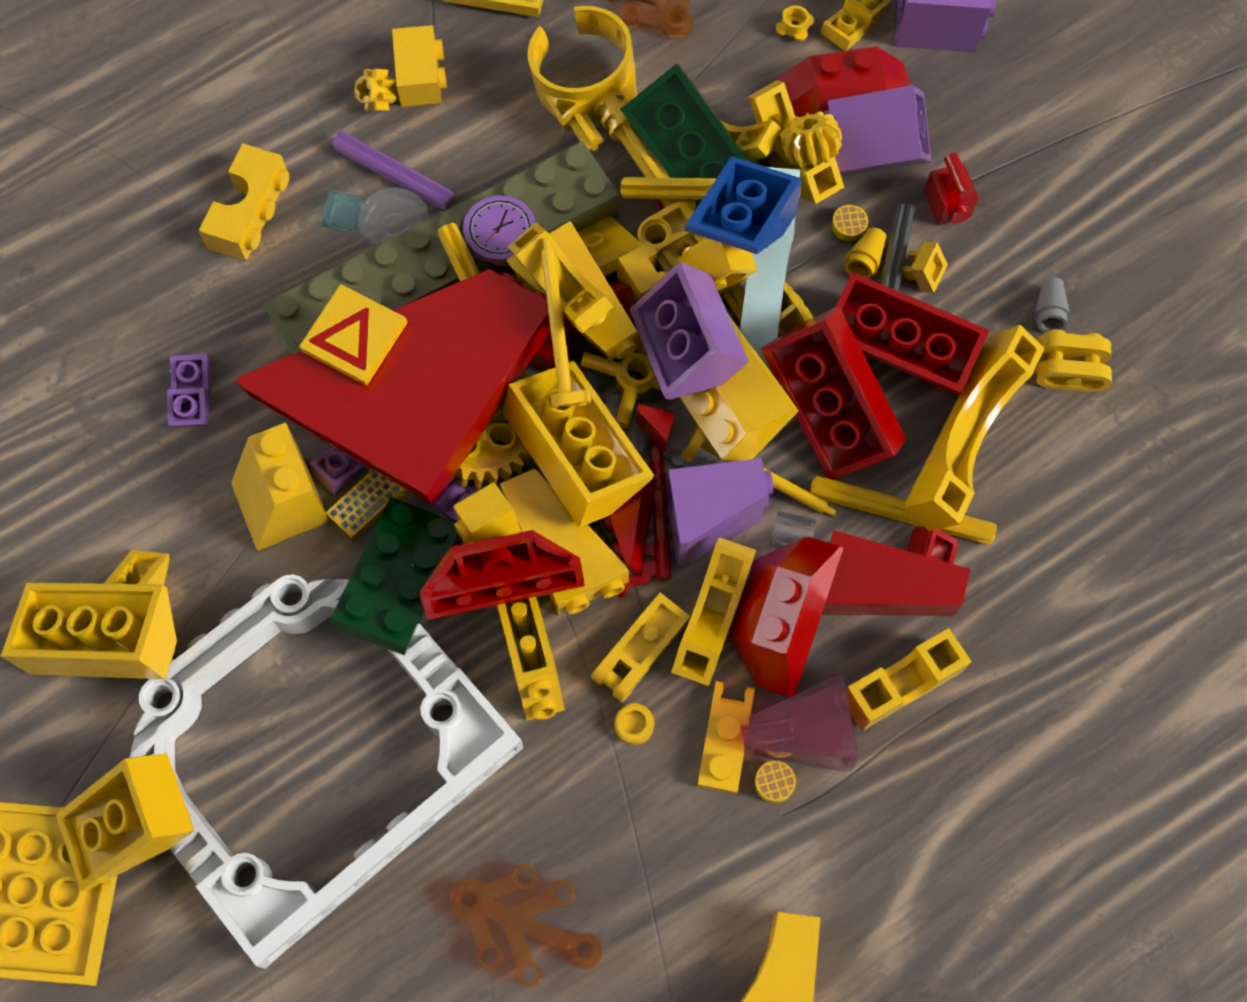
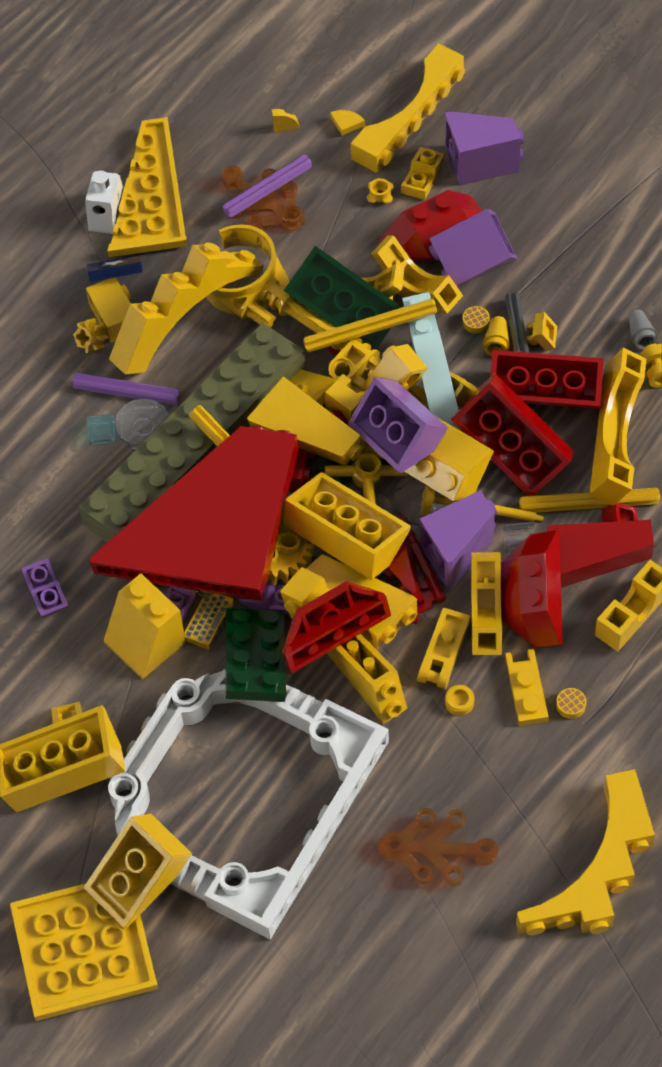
camera: 15 degrees left, 10 degrees down
(238, 227) = (28, 465): yellow arch -> none
(353, 334) = (163, 500): yellow tile -> none
(436, 15) = (114, 268): none -> clear blue tile
(485, 71) = (174, 296): none -> yellow arch
(495, 225) = (231, 400): medium lavender tile -> none
(566, 396) = (329, 493): yellow piece -> none
(579, 298) = (291, 415): yellow arch -> none
(656, 425) = (395, 498): red slope -> none
(747, 206) = (406, 324): blue slope -> none
(806, 728) = (580, 657): clear pink slope -> none
(811, 139) = (428, 269): yellow gear -> none
(951, 192) = (540, 275): red brick -> none

